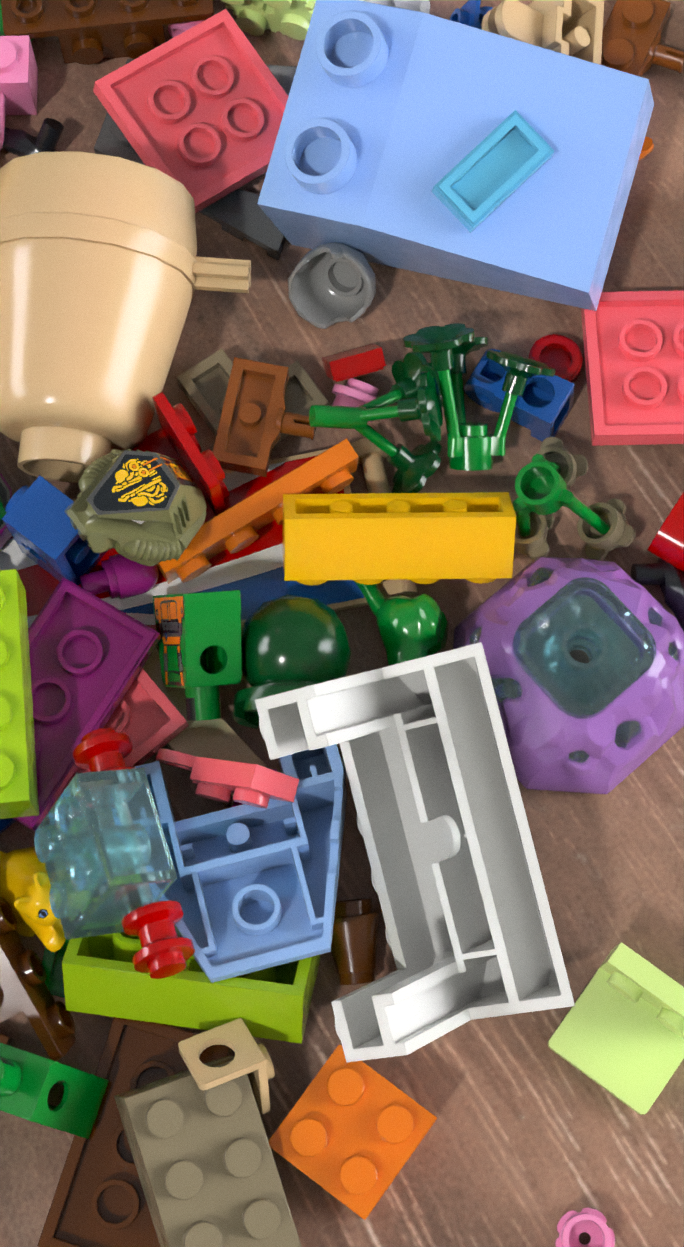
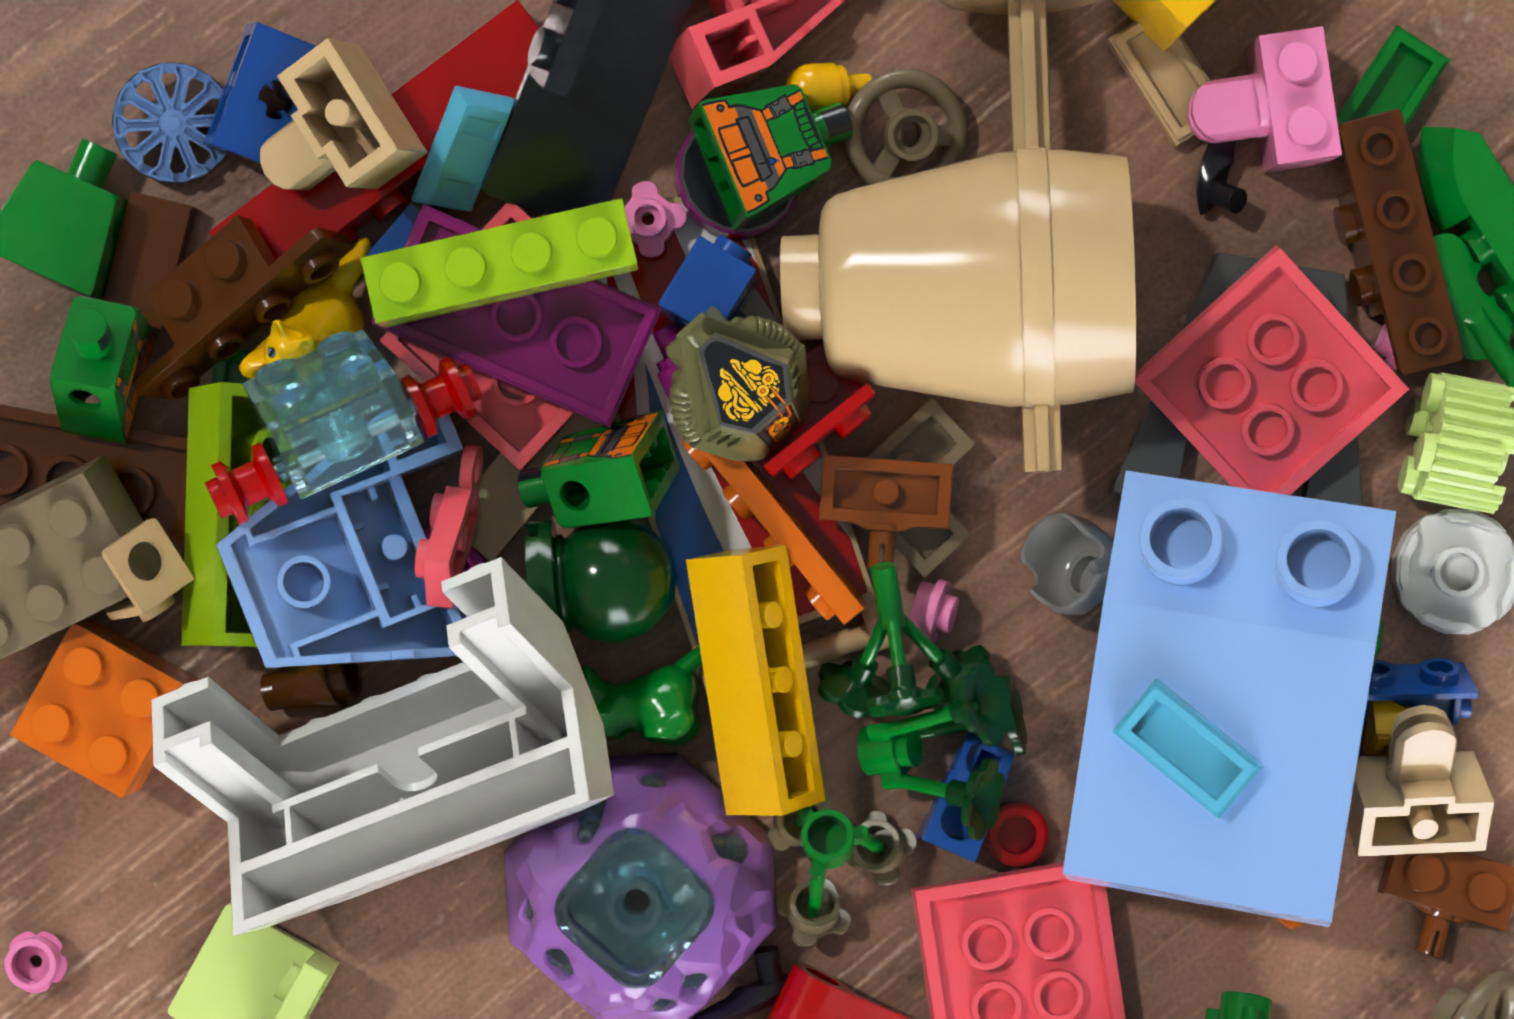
camera: 85 degrees right, 15 degrees up
(354, 362) = (979, 600): red tile -> none

